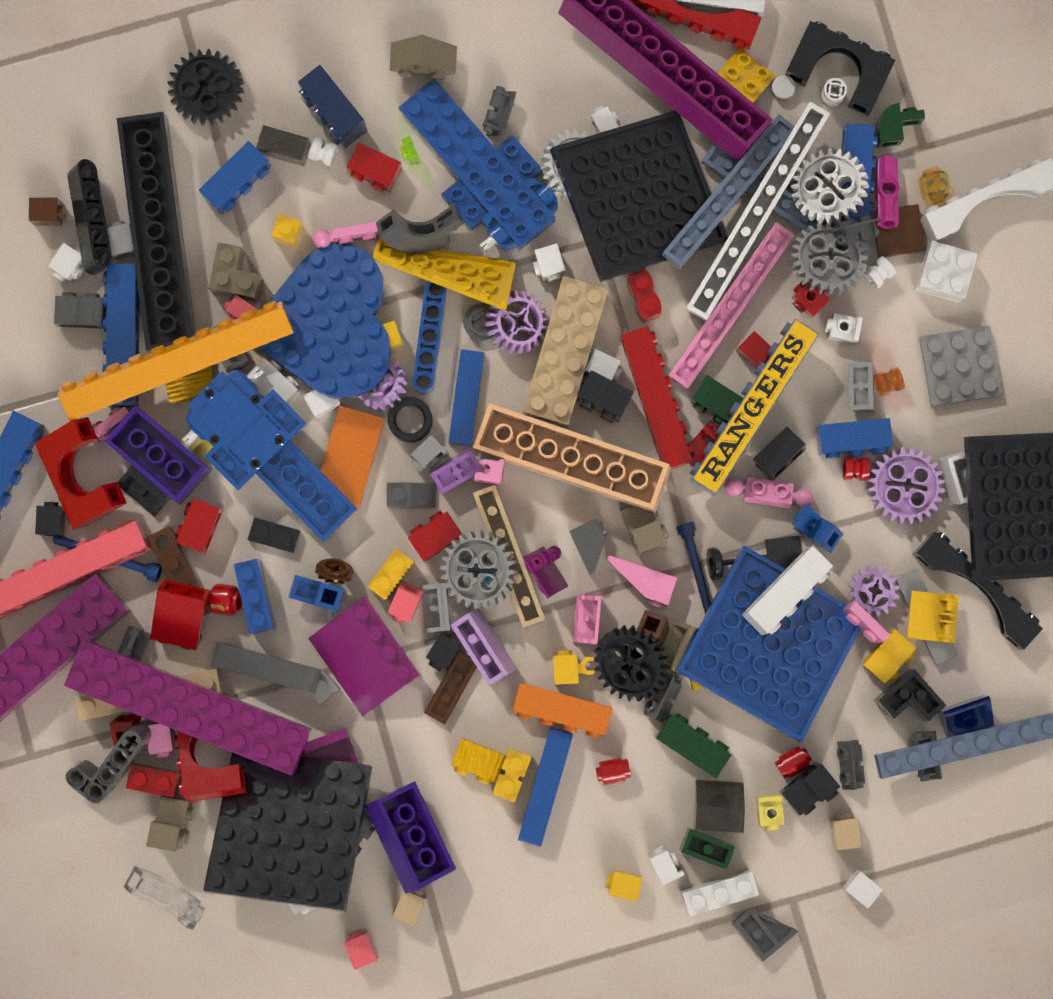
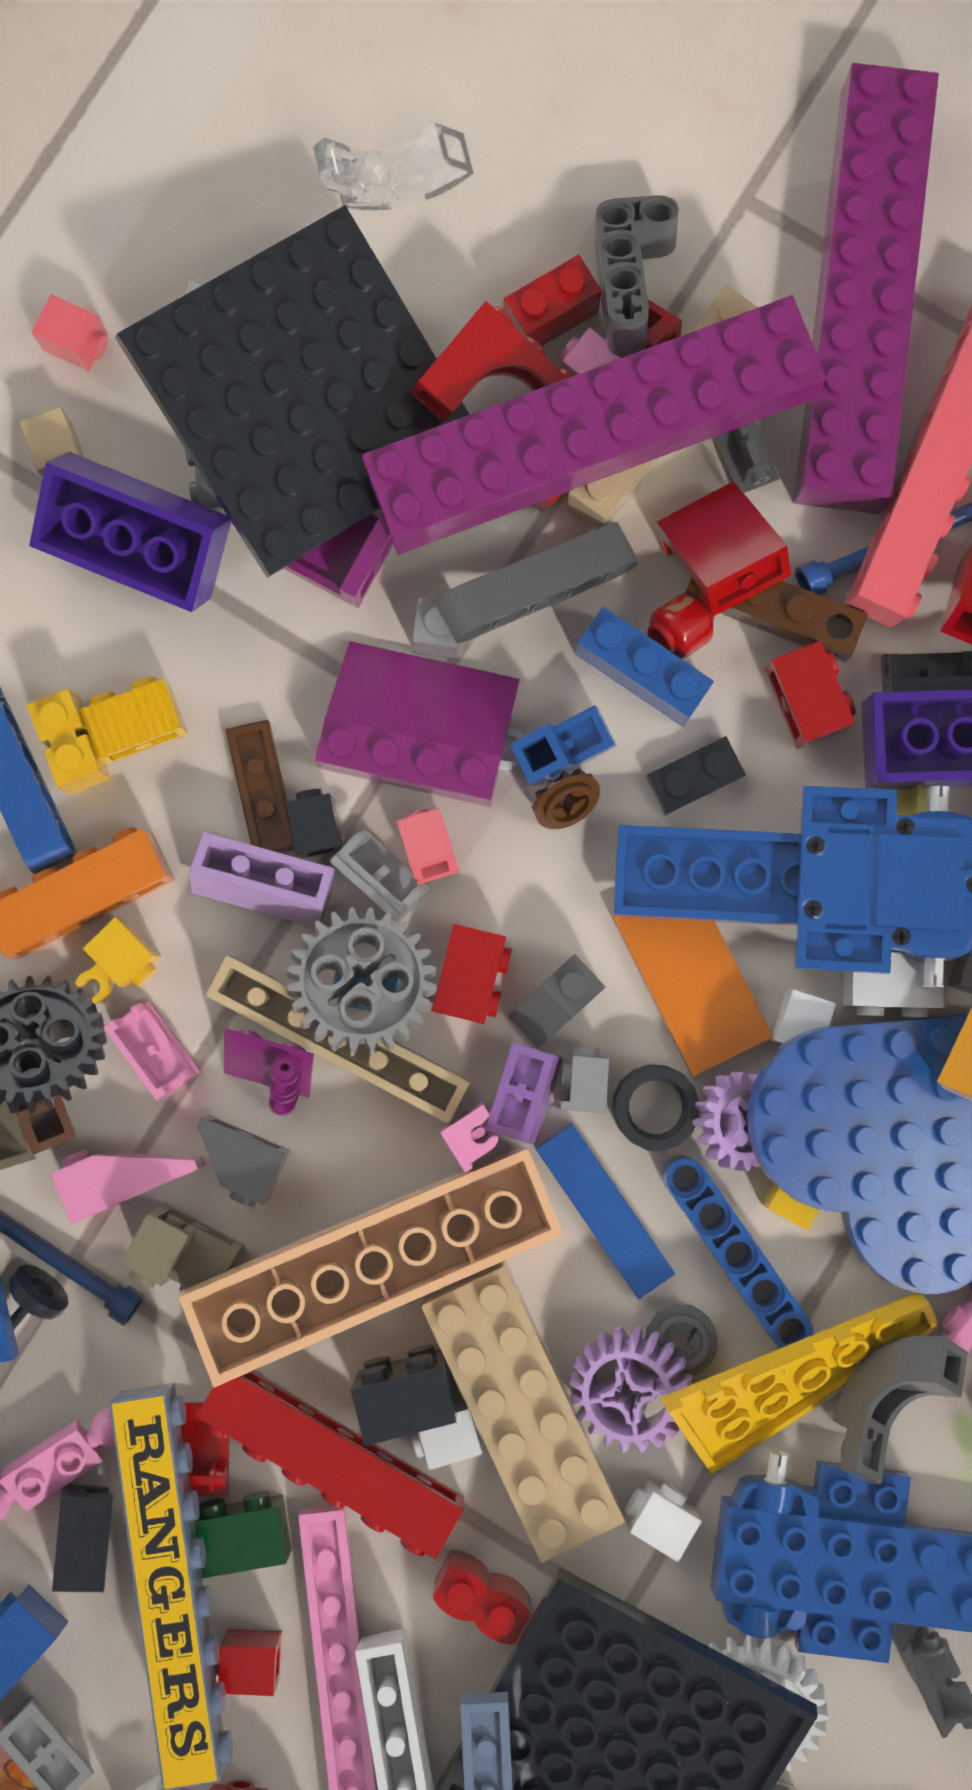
camera: 140 degrees right, 0 degrees up
(170, 826) = (470, 257): dark tan brick -> none
(391, 574) = (482, 865): yellow brick -> none

